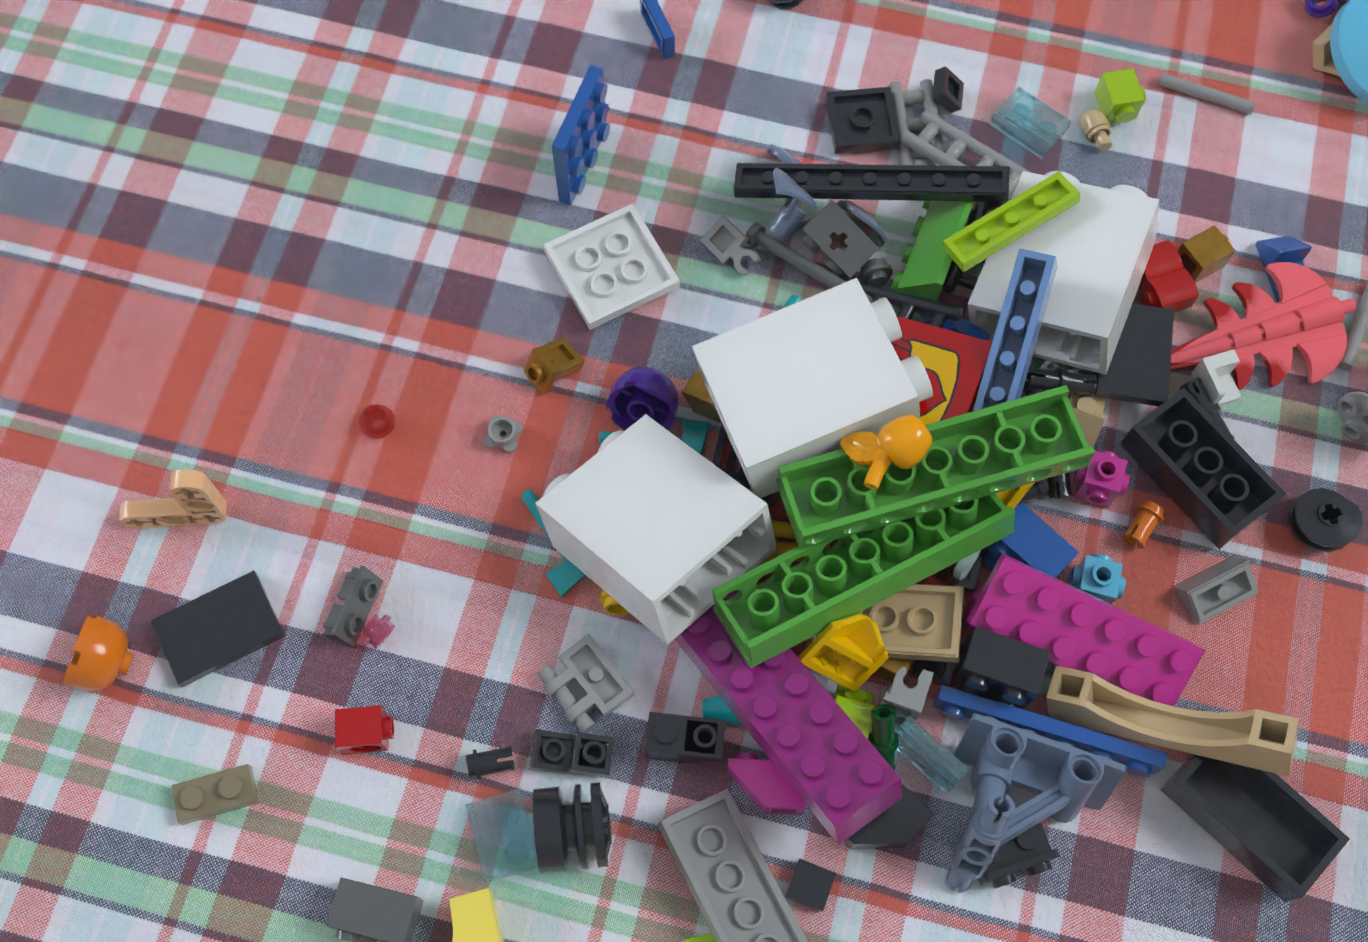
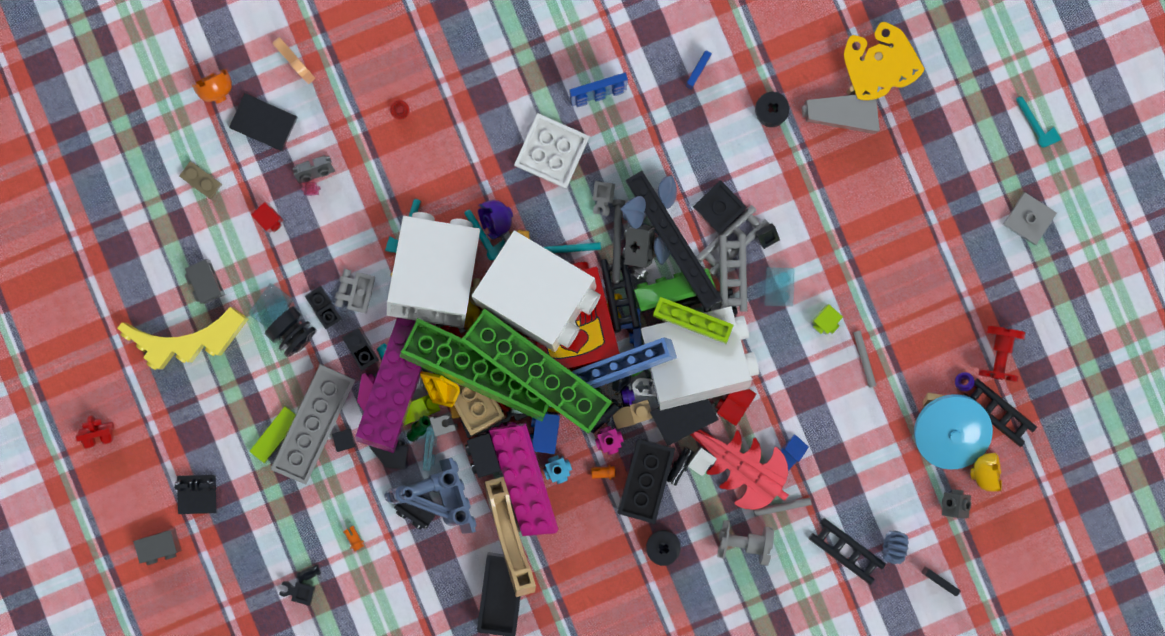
camera: 55 degrees right, 20 degrees up
(486, 762) = (297, 280): black pin -> none
(503, 424) = (435, 163): light grey plate -> none
(551, 363) = (483, 163): pearl gold bracket -> none
(898, 441) = (525, 351): light orange piece -> none
(1049, 379) = (641, 392): black pin -> none
(1096, 128) = (801, 320): tan cylinder -> none
(1138, 758) = (479, 499): blue plate -> none
(1206, 253) = (764, 414): pearl gold brick -> none
(1217, 589) = (597, 521): light grey slope -> none

